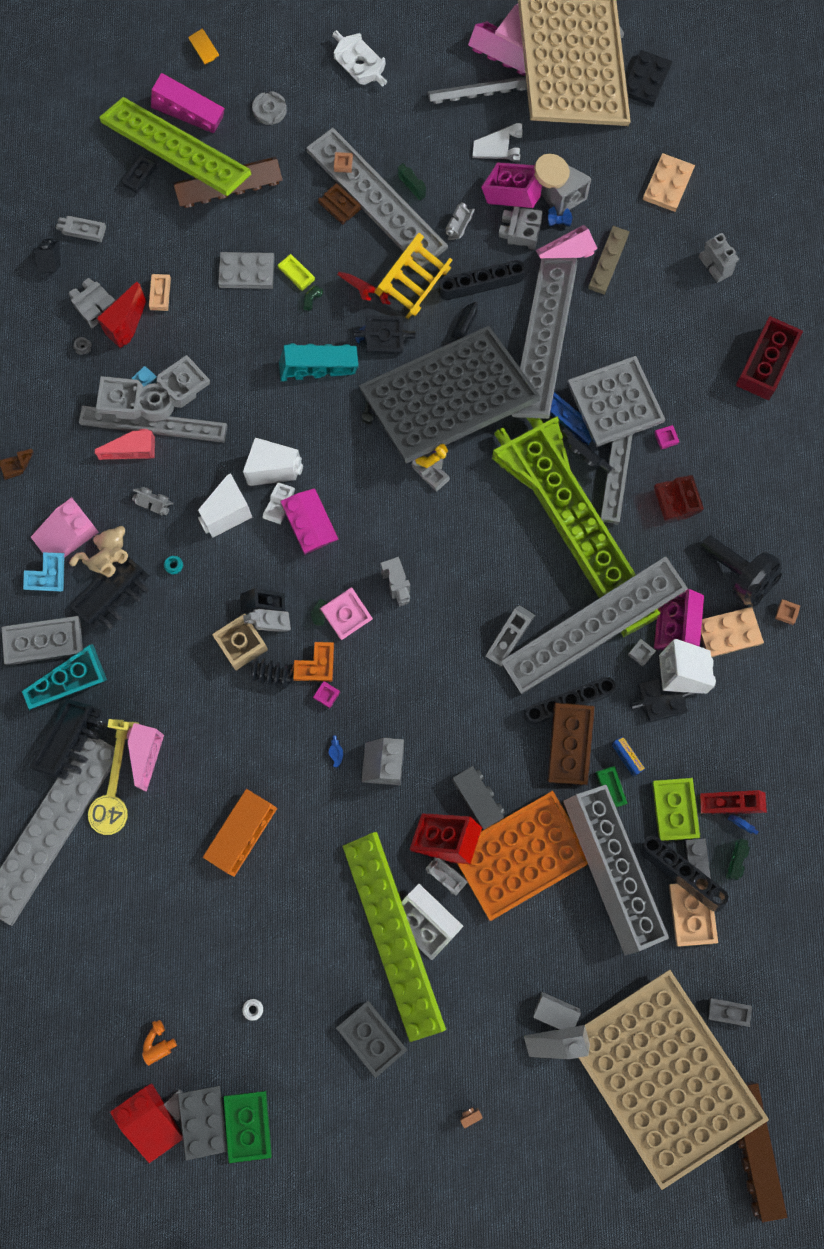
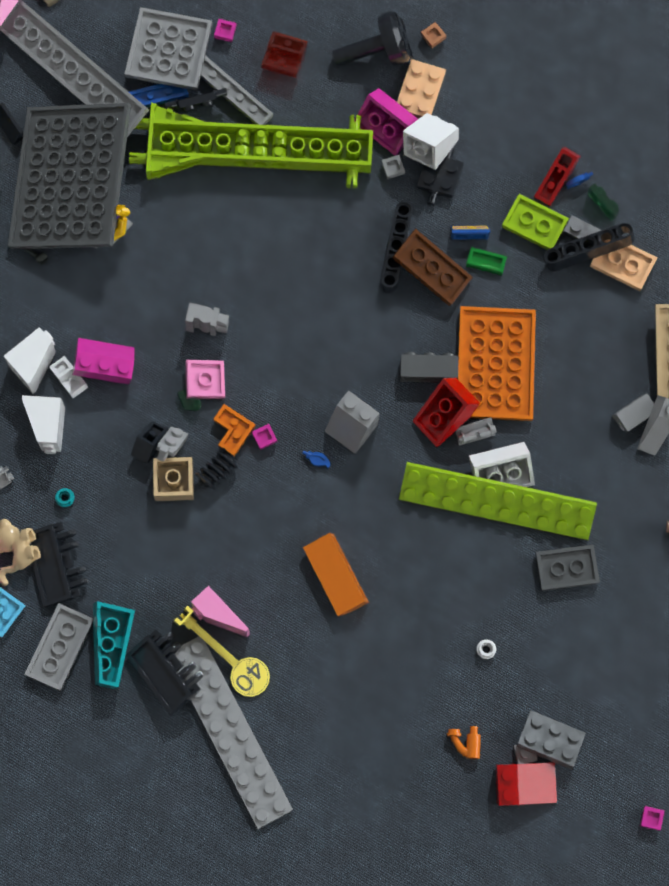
camera: 60 degrees left, 0 degrees up
(247, 1126) = (576, 706): green plate -> none
(434, 477) = (133, 236): light grey slope -> none
(510, 634) = (311, 259): light grey slope -> none
(594, 625) = (349, 187): light grey plate -> none
(615, 870) = (553, 296): light grey brick -> none

